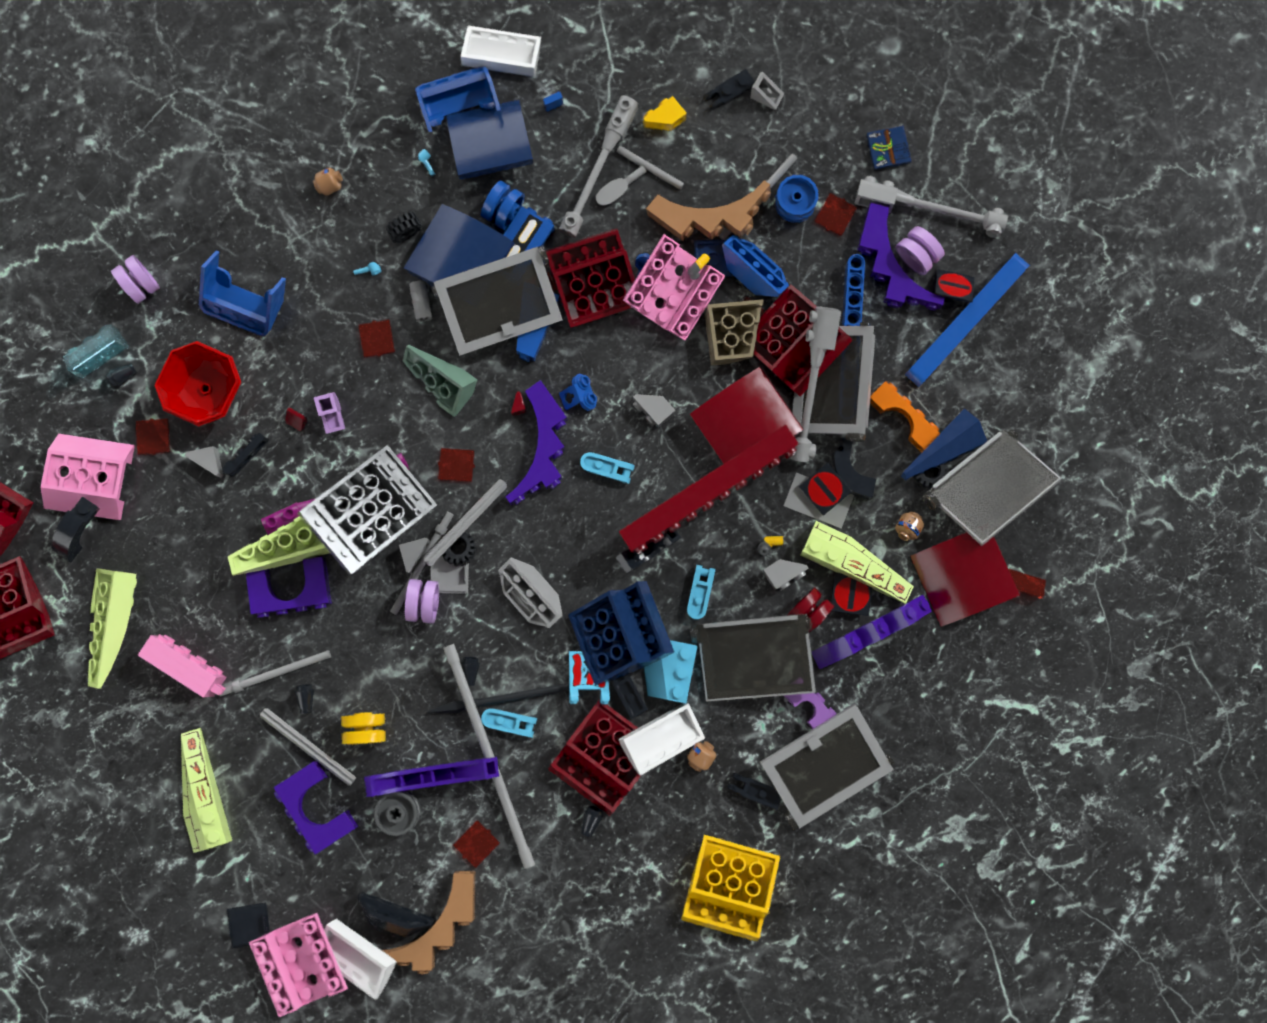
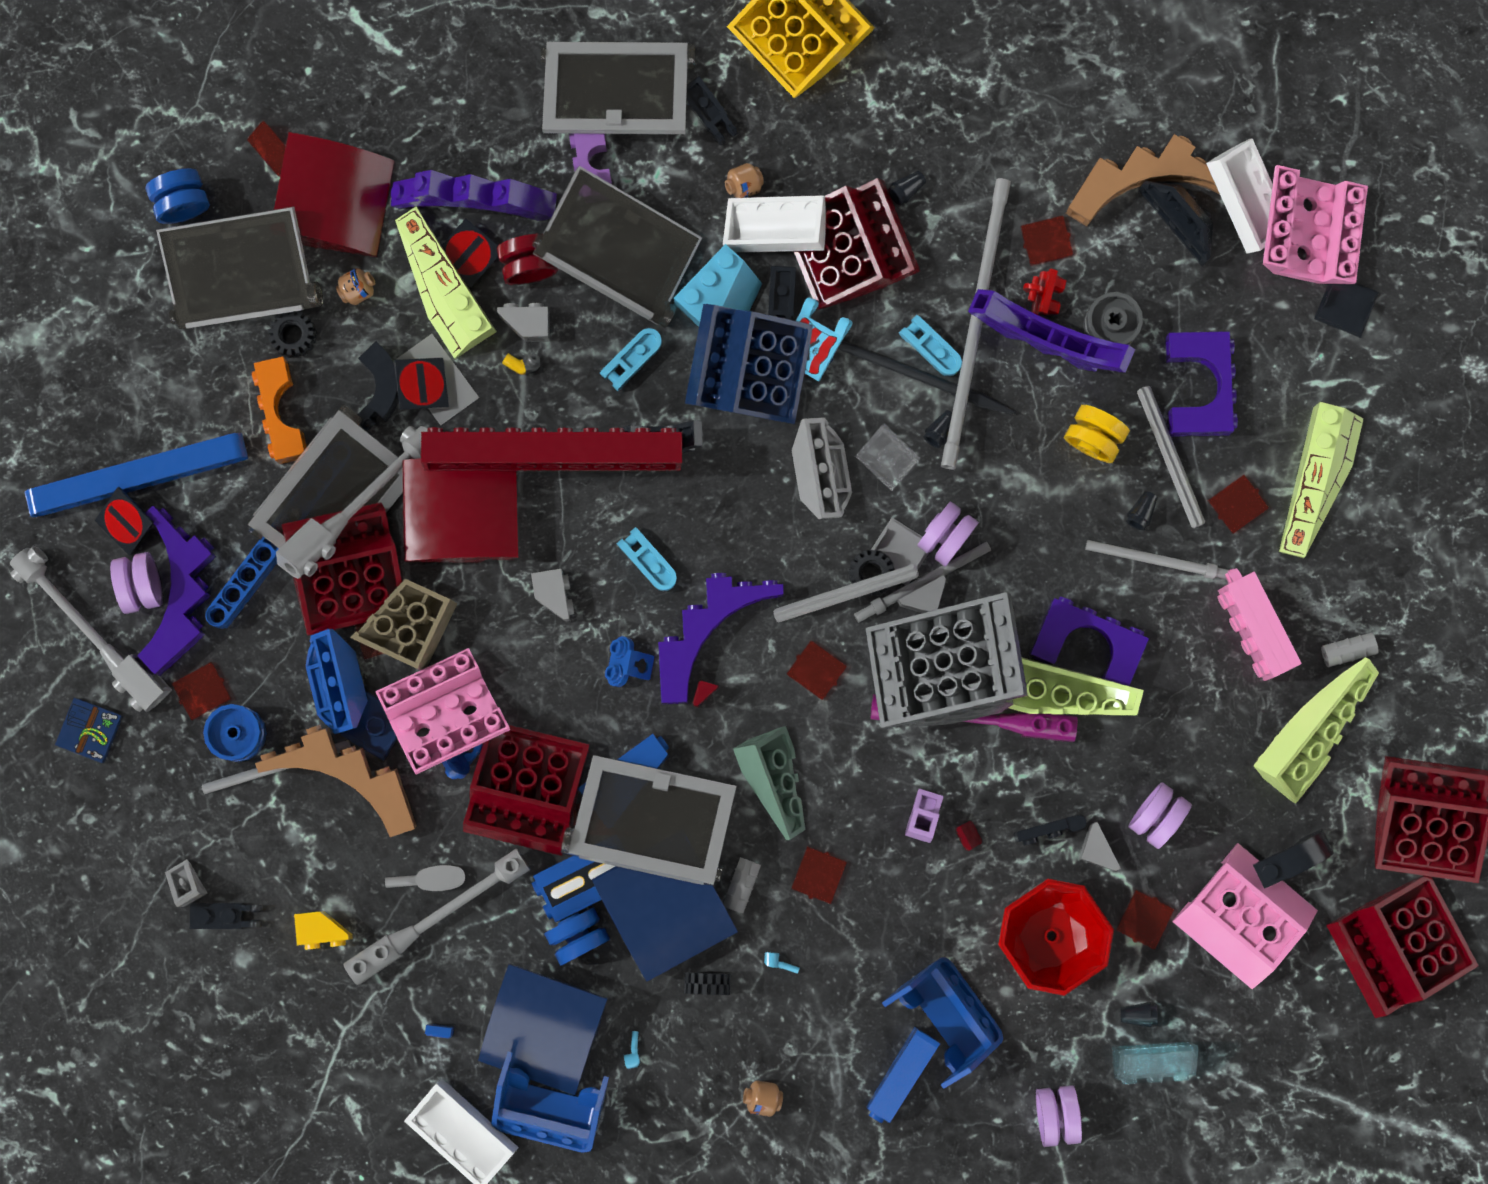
camera: 145 degrees left, 0 degrees up
(116, 689) = (1349, 649): none -> light grey axle
(177, 503) = (1163, 818): none -> lavender wheel
(245, 743) = (1238, 504): none -> clear red piece
(248, 248) = (902, 1075): none -> blue slope
(457, 804) = (1041, 292): none -> red hips
(492, 629) = (888, 457): none -> clear slope
(651, 168) = (377, 880): light grey bar -> none
(694, 270) = (401, 719): arm -> none
(957, 438) = (236, 347): dark blue wedge -> none
(1063, 511) = (177, 196): none -> blue wheel

